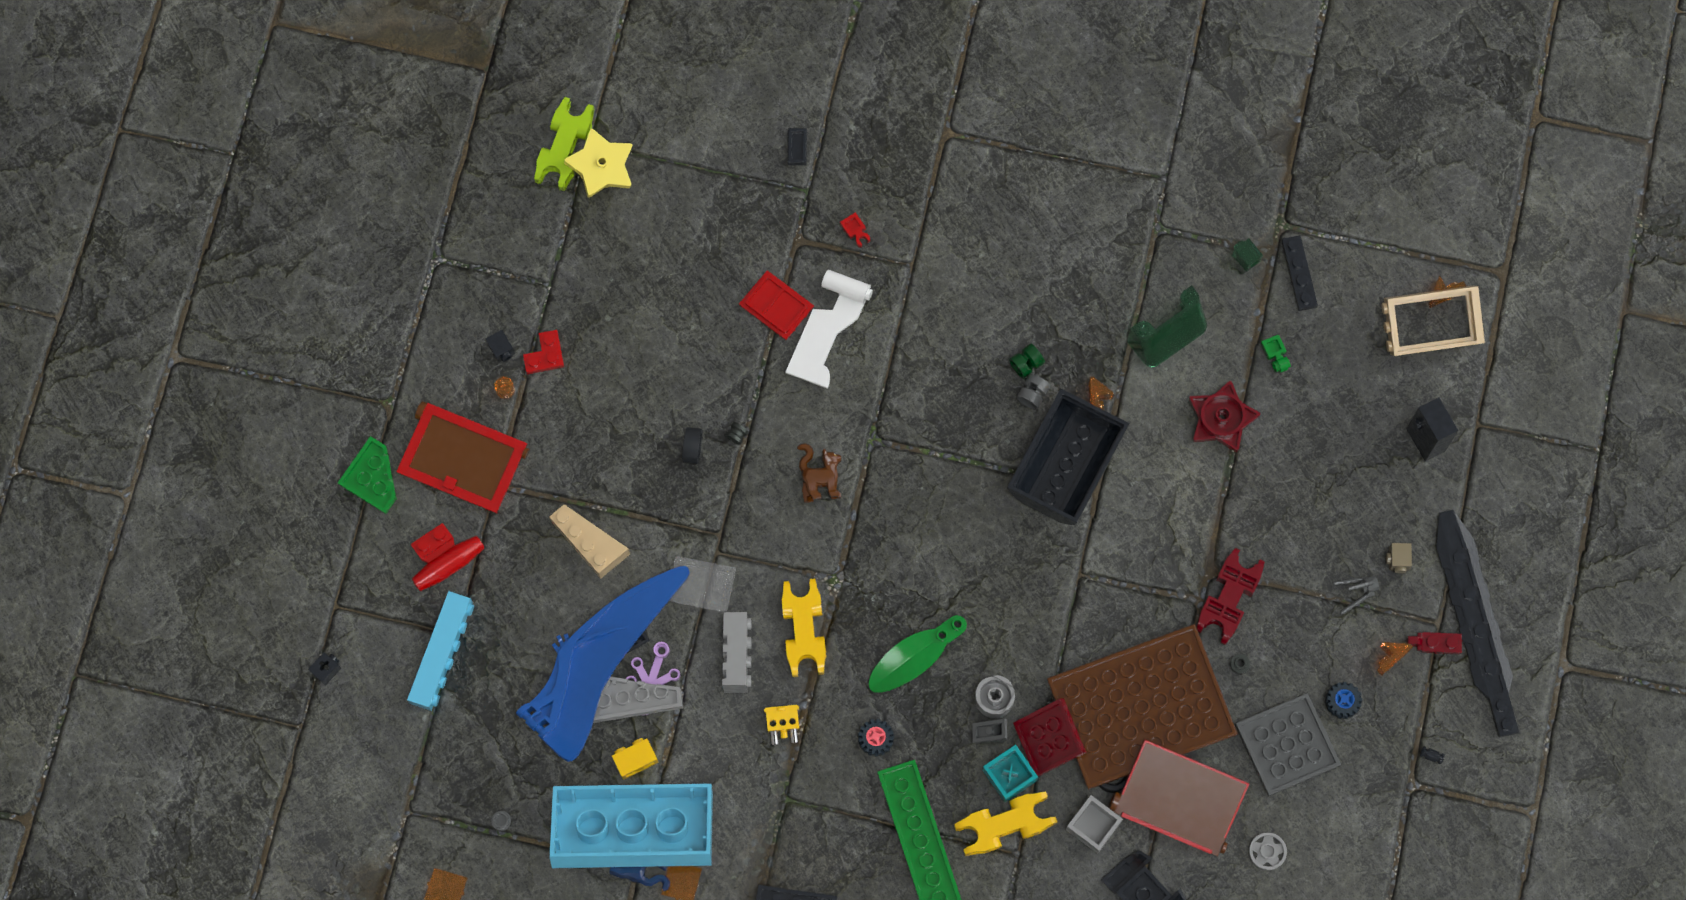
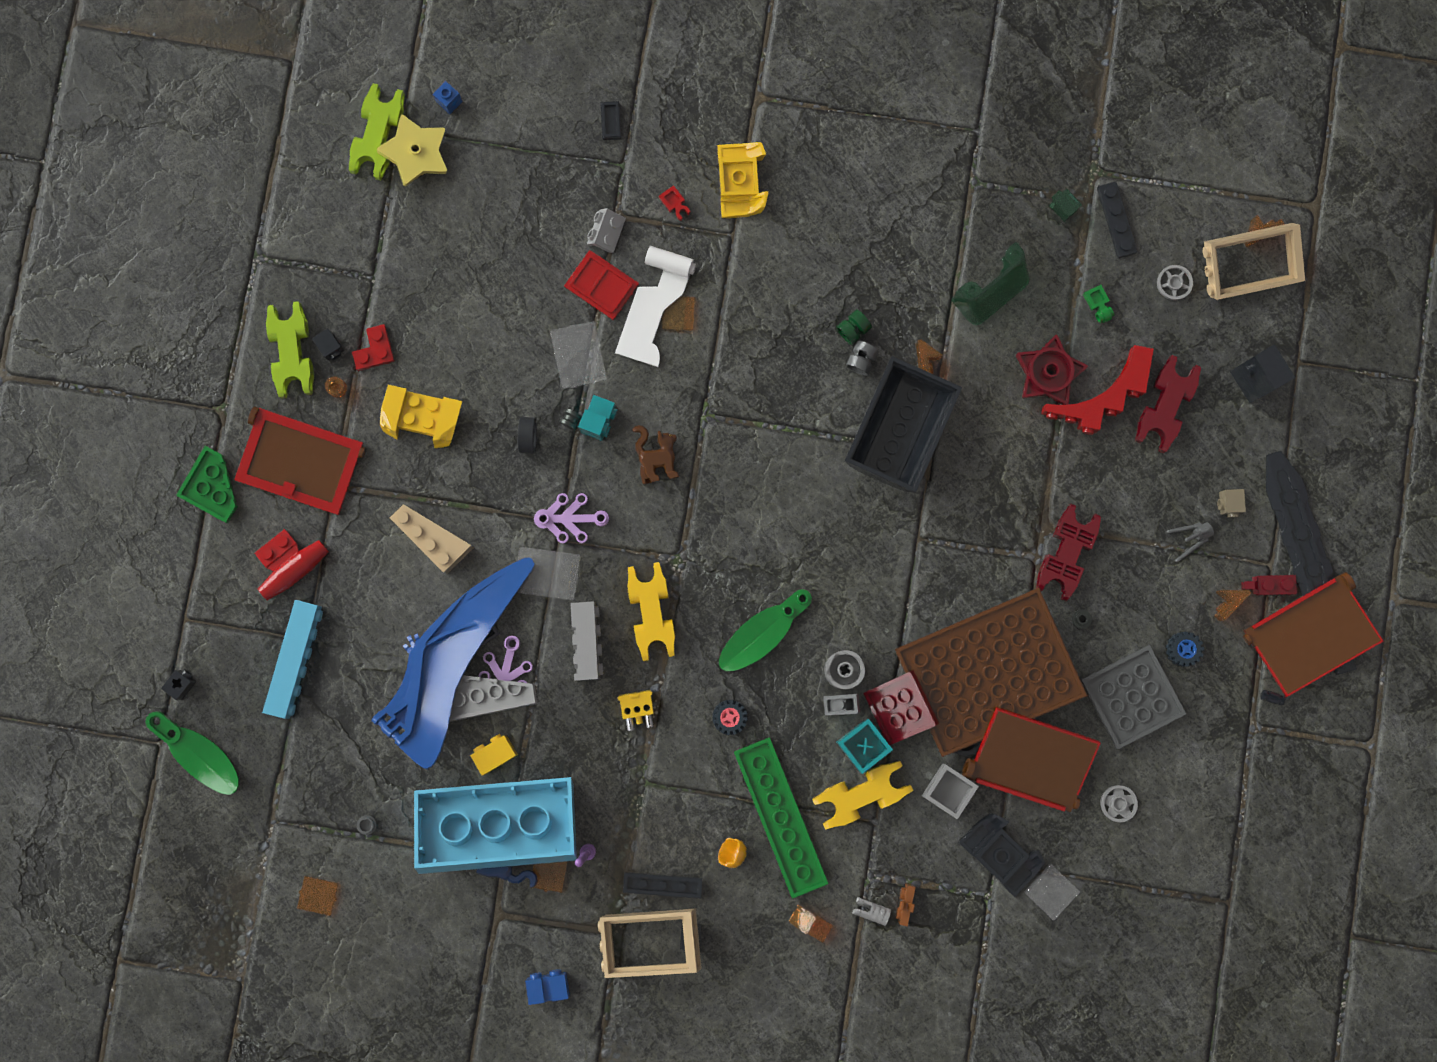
camera: 10 degrees left, 10 degrees up
(336, 740) = (196, 754): none -> green plant
(462, 362) = (291, 363): none -> lime piece
(585, 420) = (419, 415): none -> yellow piece
(637, 115) = (445, 96): none -> blue brick
(722, 862) = (587, 852): none -> medium lavender piece
(727, 530) = (567, 518): none -> lavender plant
(748, 372) = (578, 355): none -> clear piece
(762, 434) = (597, 418): none -> teal brick
(785, 252) = (606, 230): none -> light grey bracket
(852, 339) = (679, 314): none -> clear orange piece
(869, 872) = (732, 853): none -> light orange hair
(922, 211) = (740, 179): none -> yellow piece
(1282, 449) = (1089, 413): none -> red arch
(1333, 470) = (1162, 417): none -> dark red piece
(1354, 337) = (1174, 282): none -> light grey wheel
(1475, 693) = (1313, 635): none -> reddish brown door

